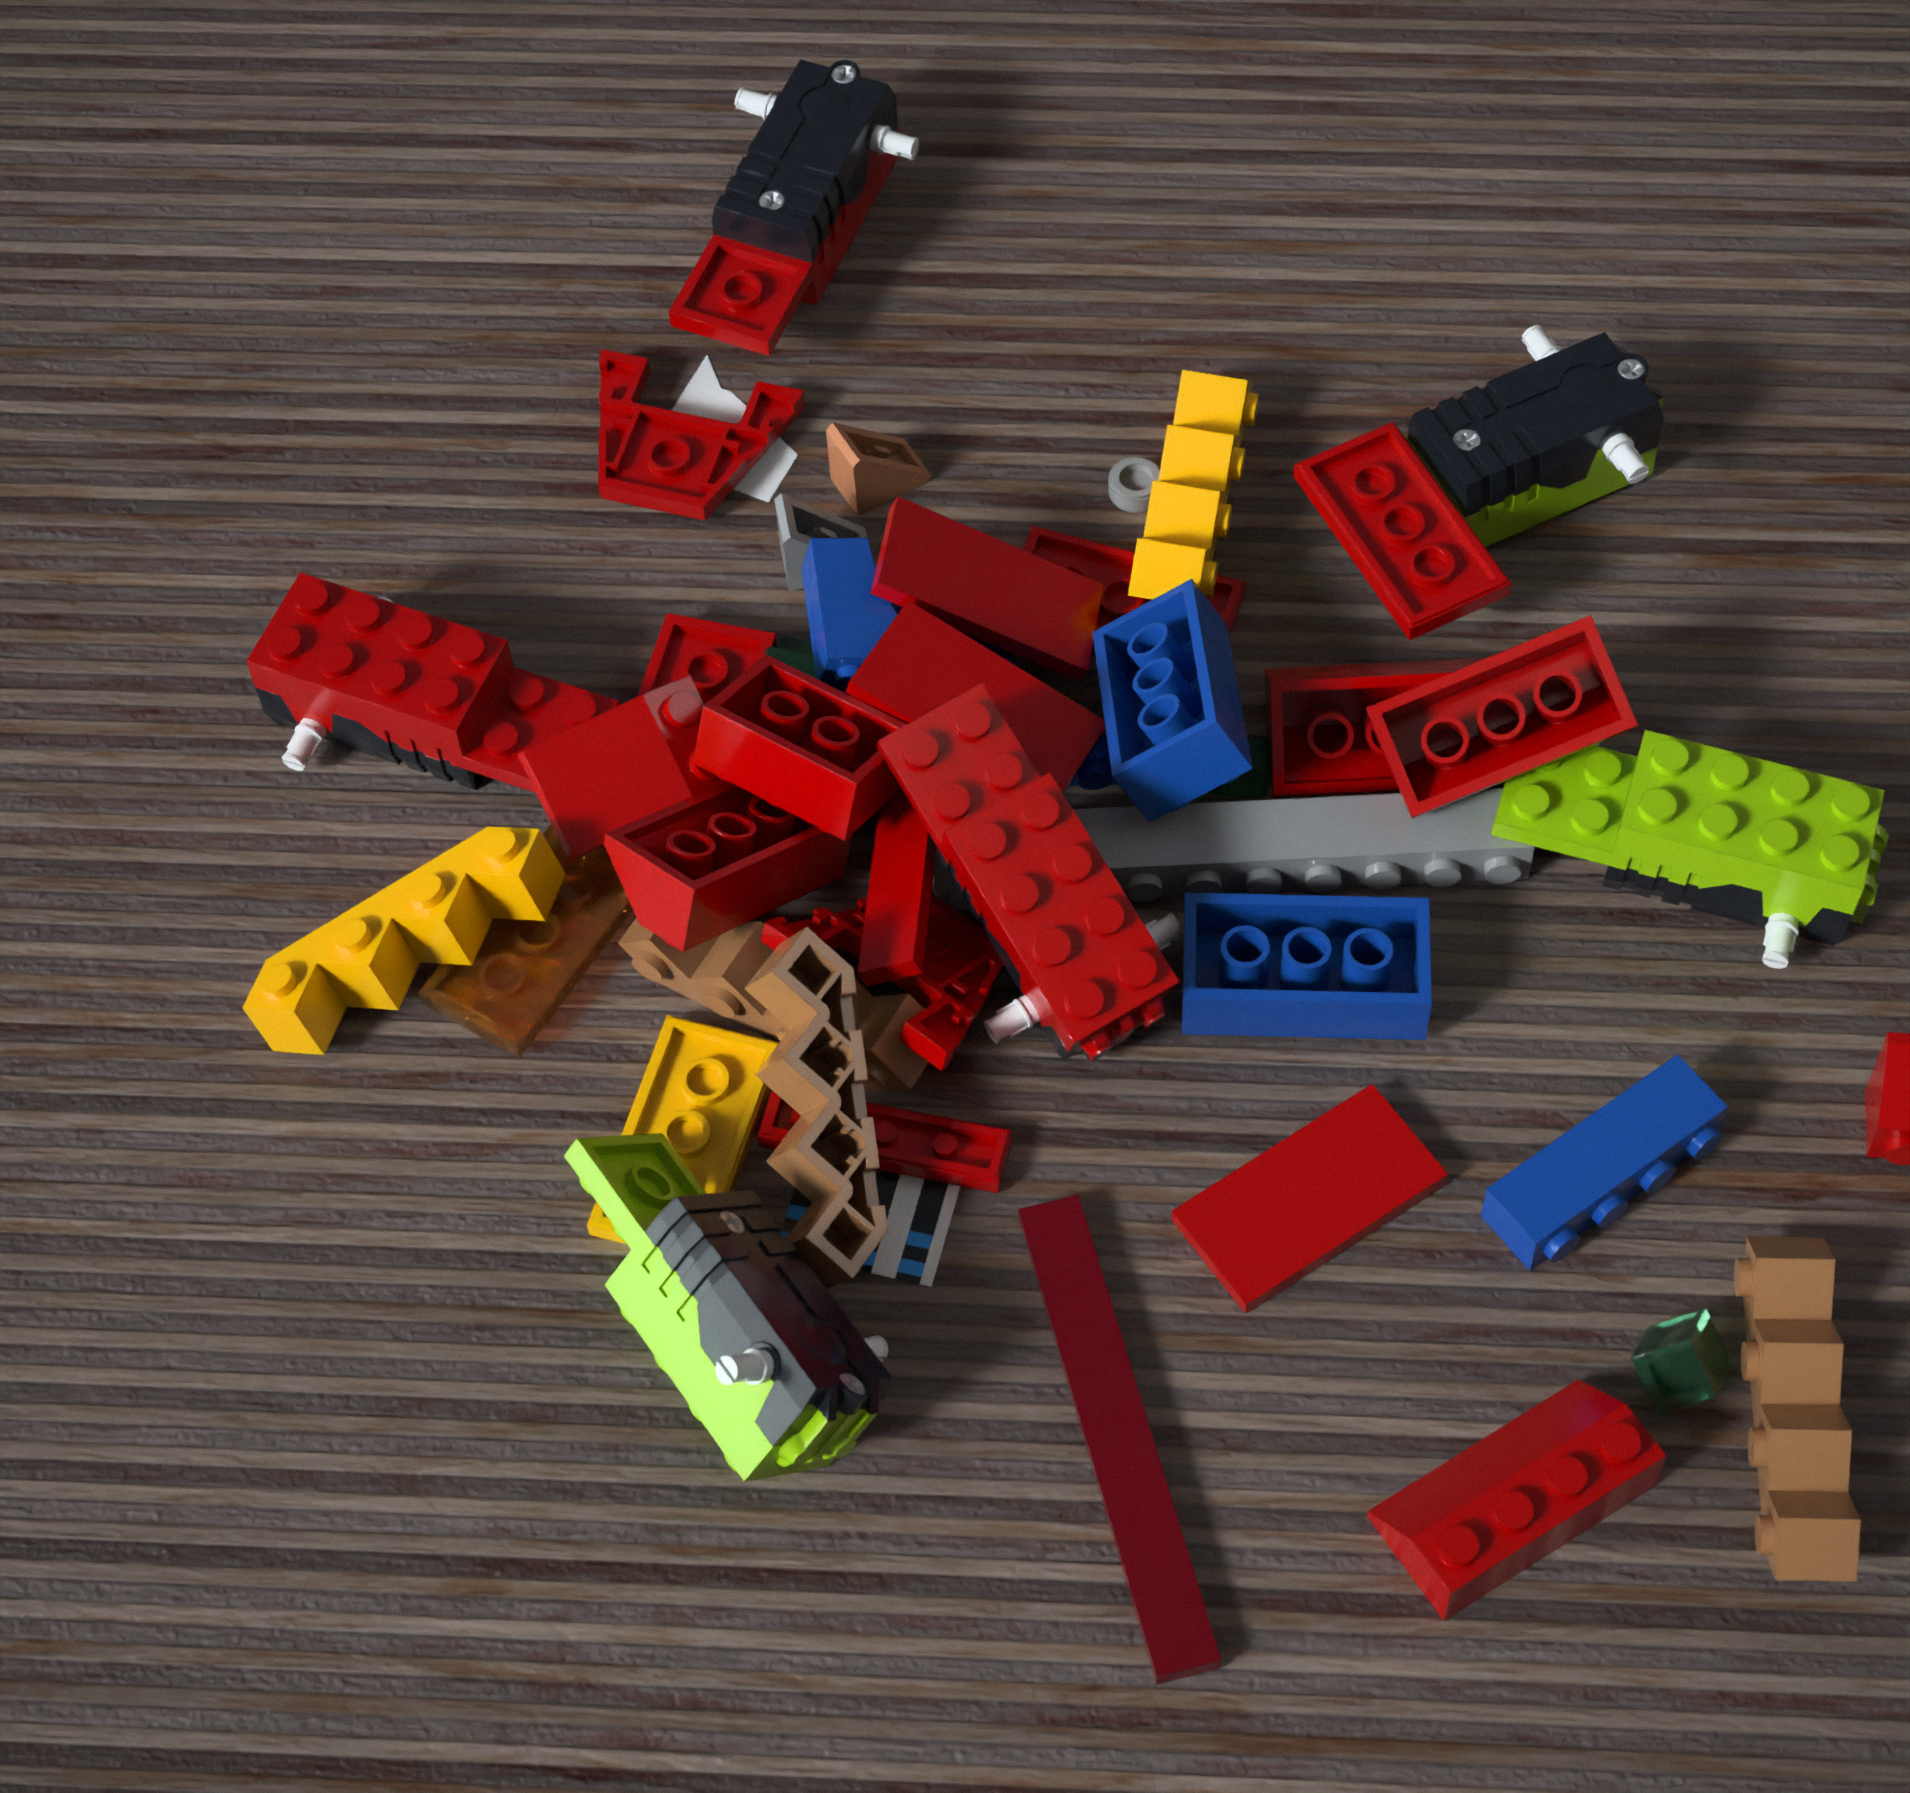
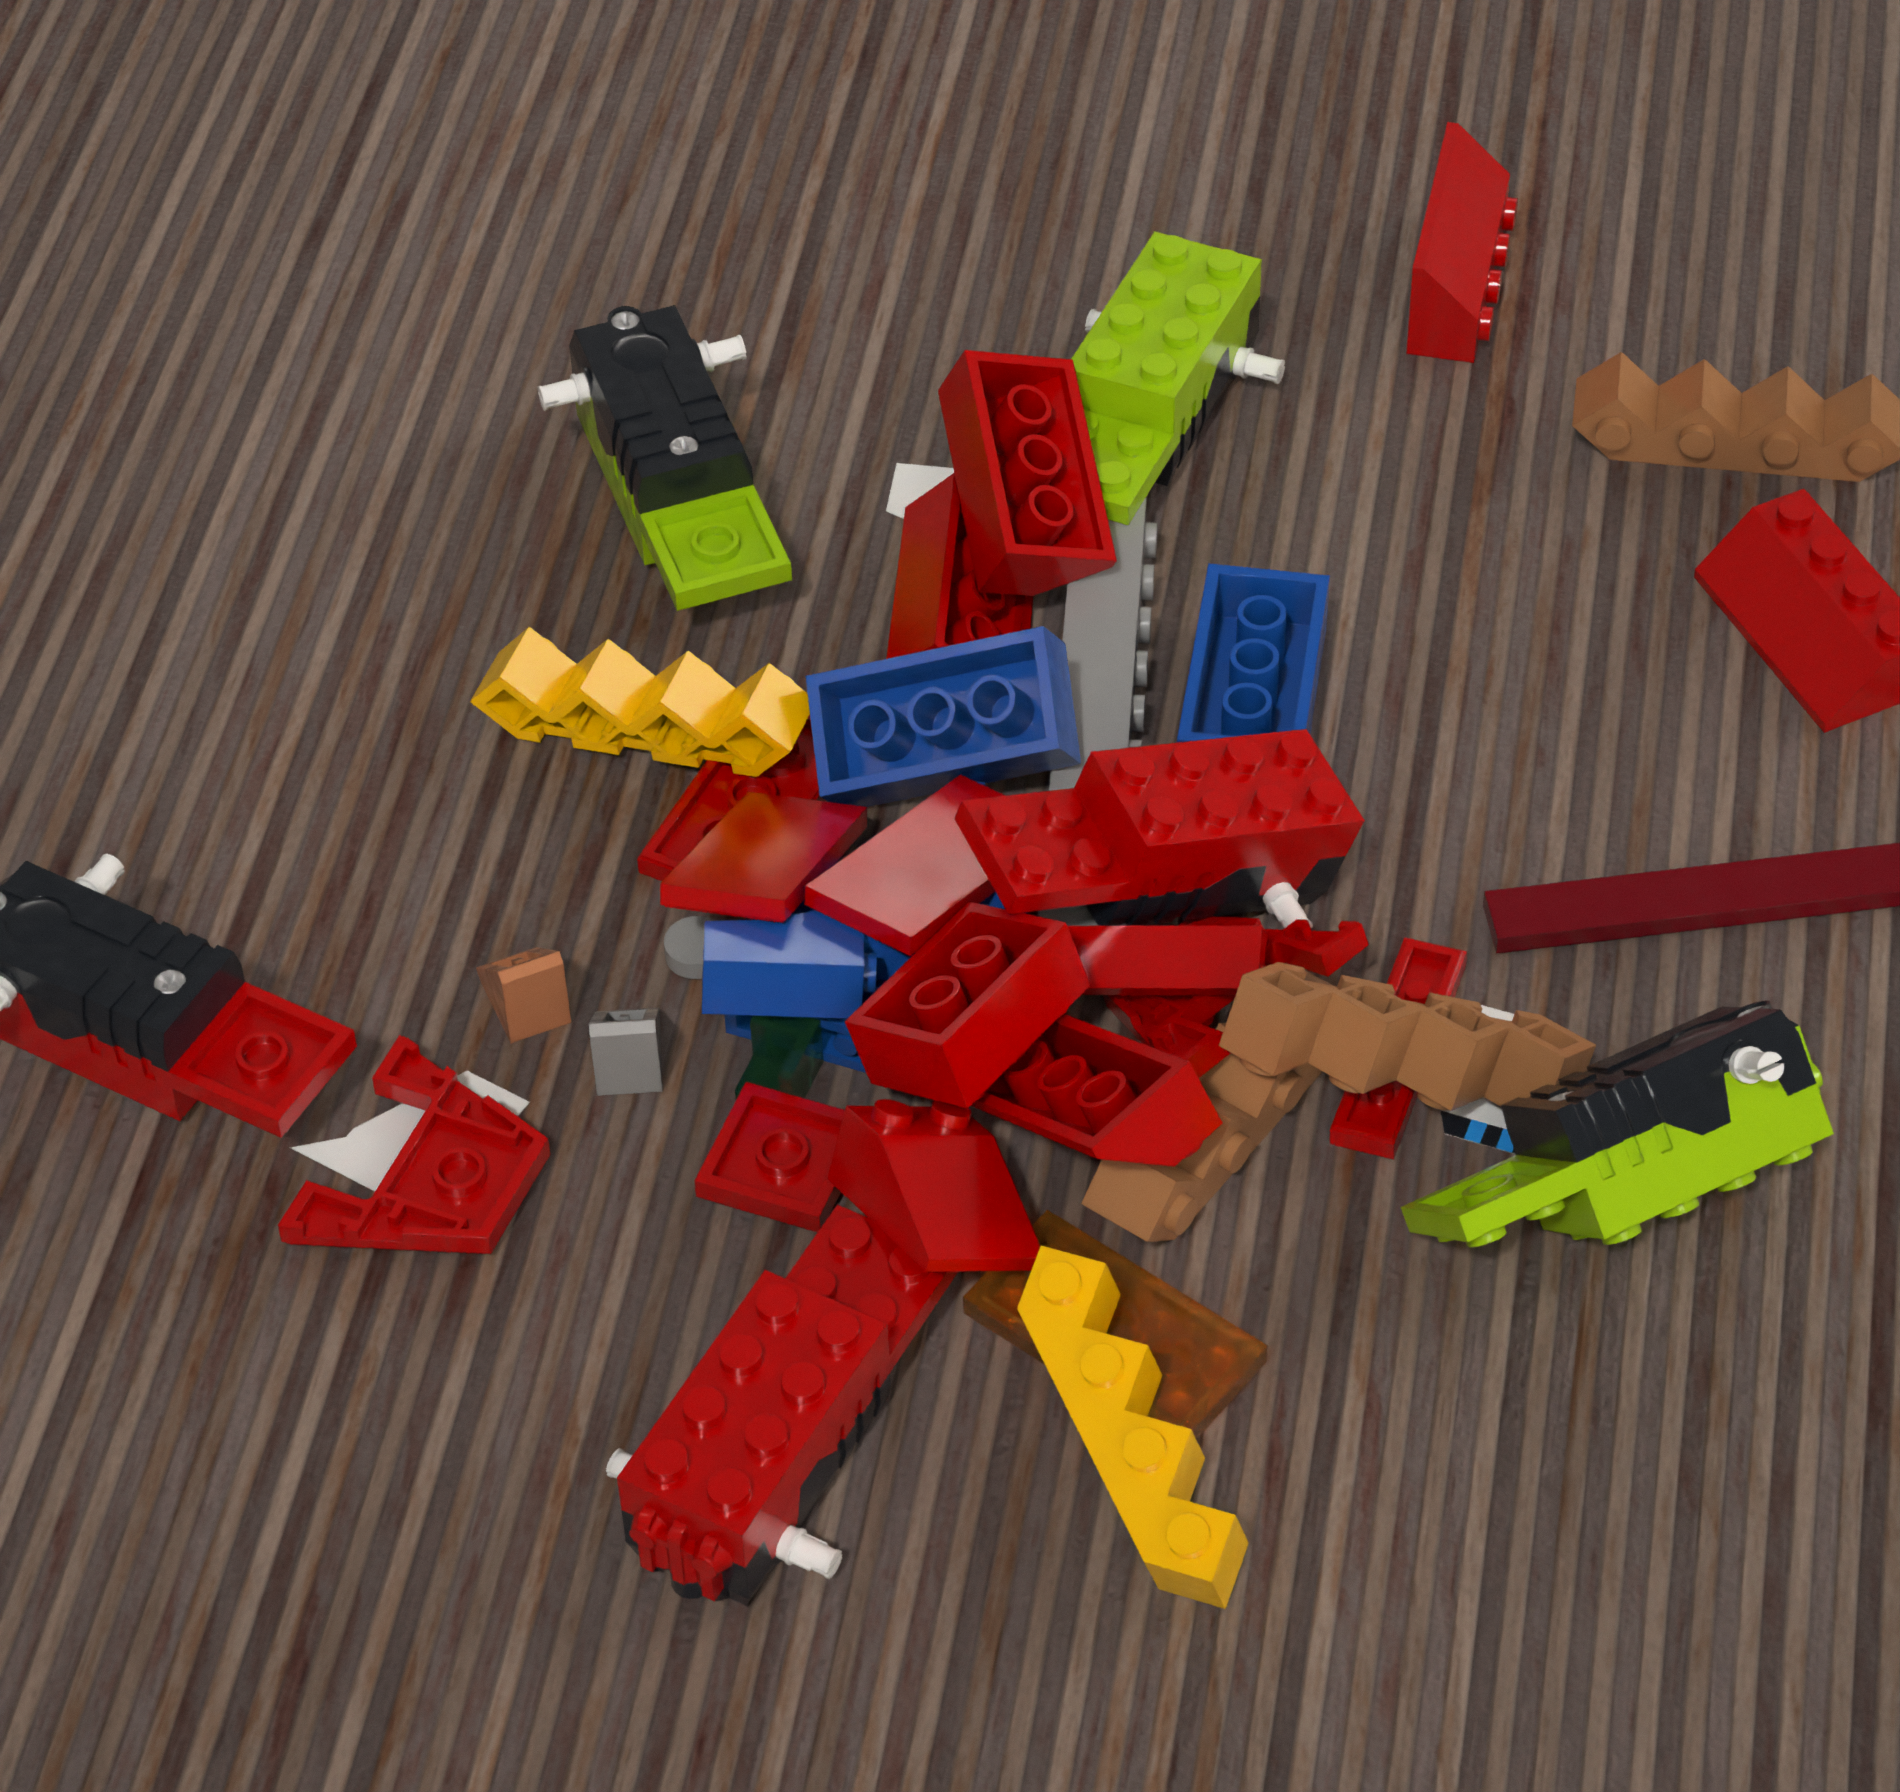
camera: 85 degrees left, 10 degrees down
(703, 1101) = (1346, 1211): yellow tile -> none
(1131, 483) = (596, 774): light grey tile -> none
(1309, 1198) = (1495, 729): red tile -> none
(1402, 530) = (764, 526): red tile -> none
(1605, 1163) = (1483, 513): blue brick -> none
(1682, 1361) = (1688, 488): clear green panel -> none

